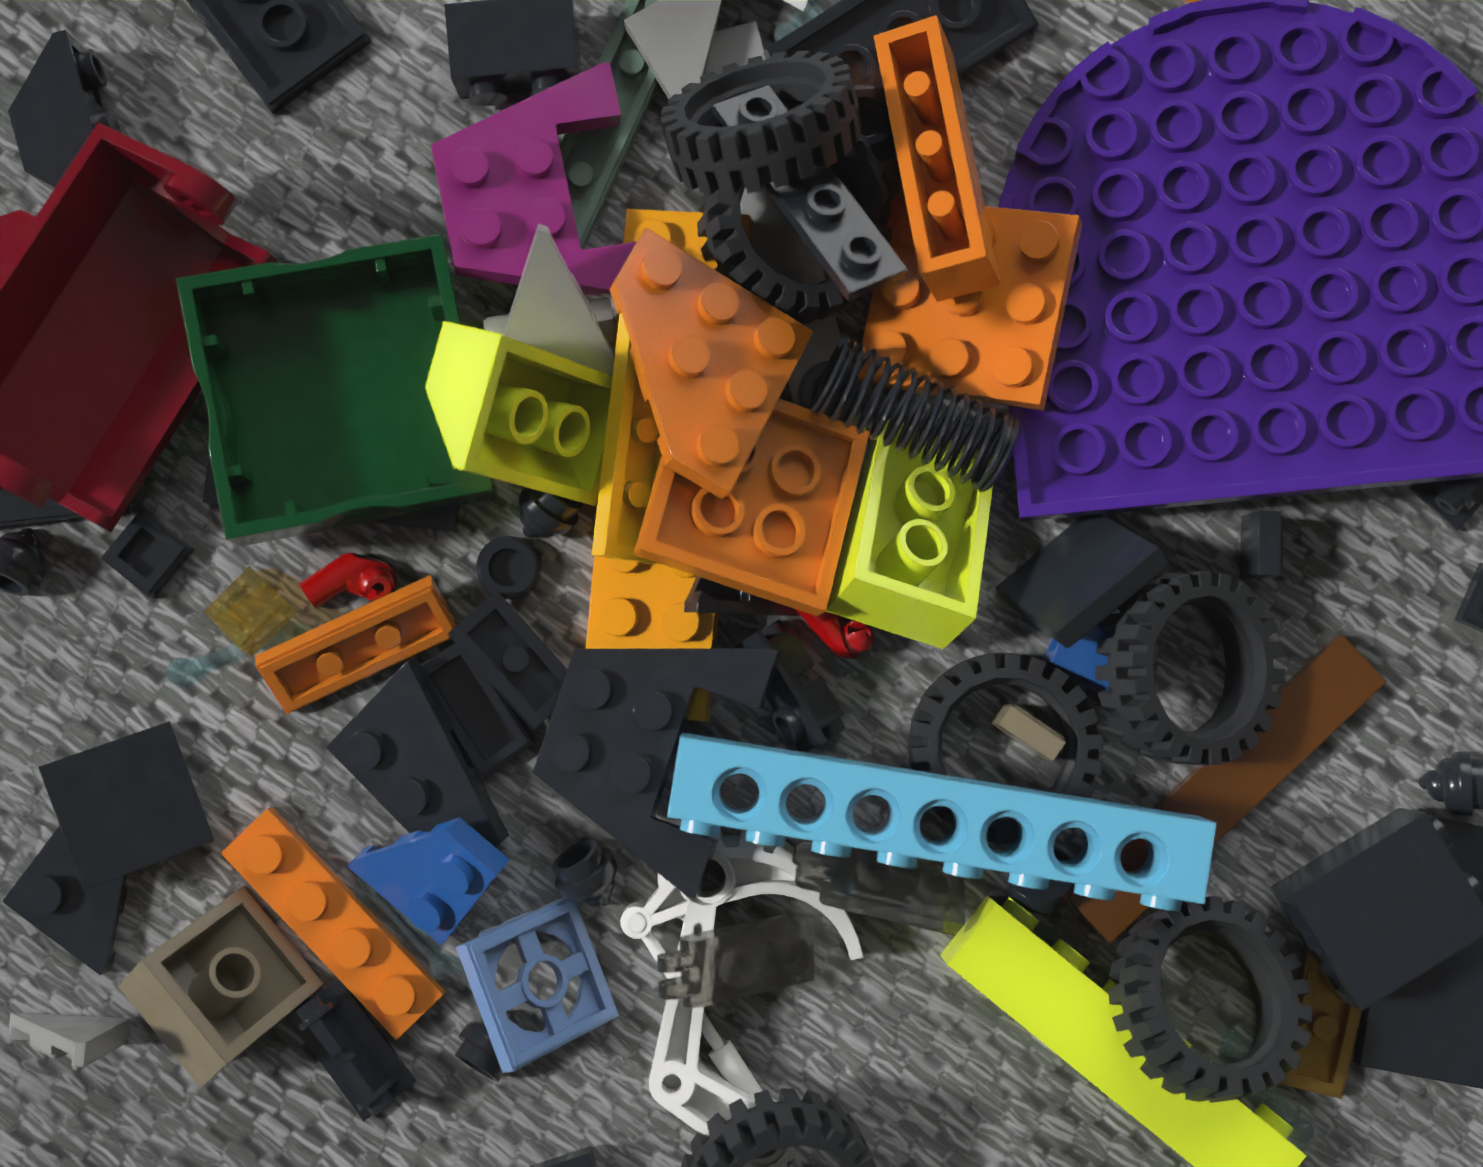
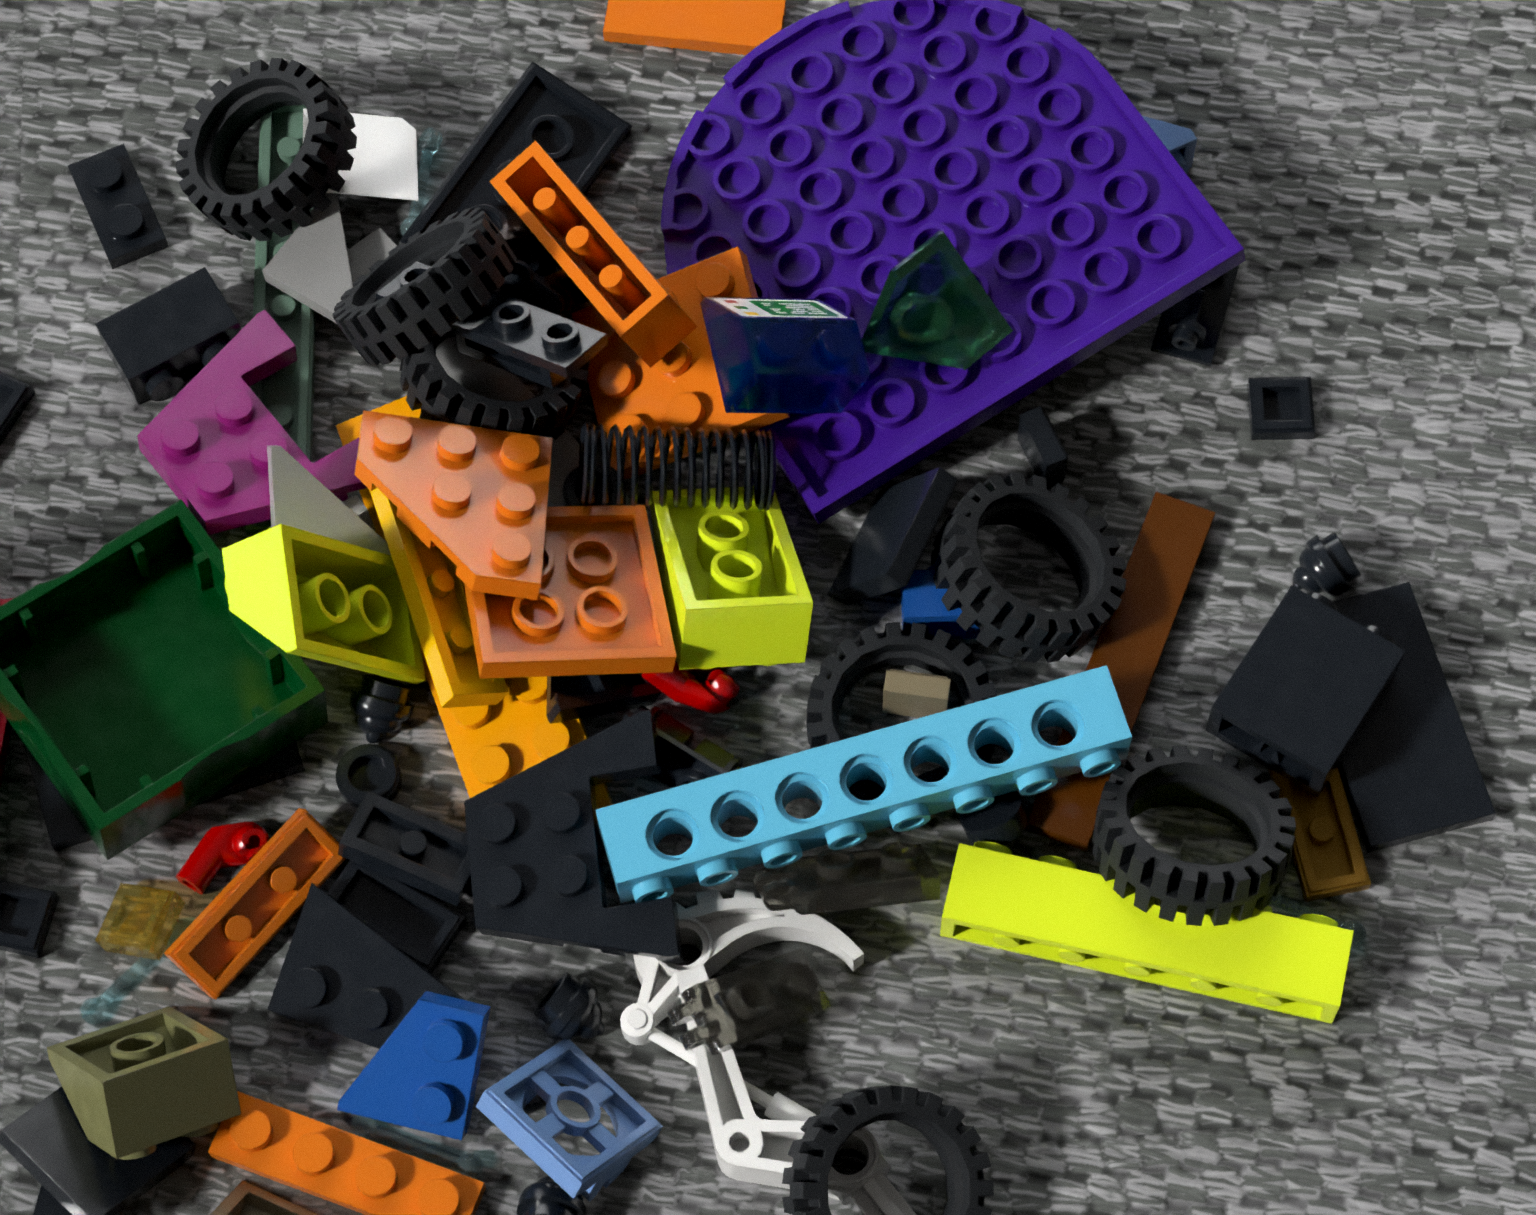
camera: 20 degrees left, 20 degrees down
(185, 774) = (147, 1081): none -> olive slope
(1070, 353) = (784, 354): none -> clear blue slope
(1235, 382) = (934, 310): none -> slope

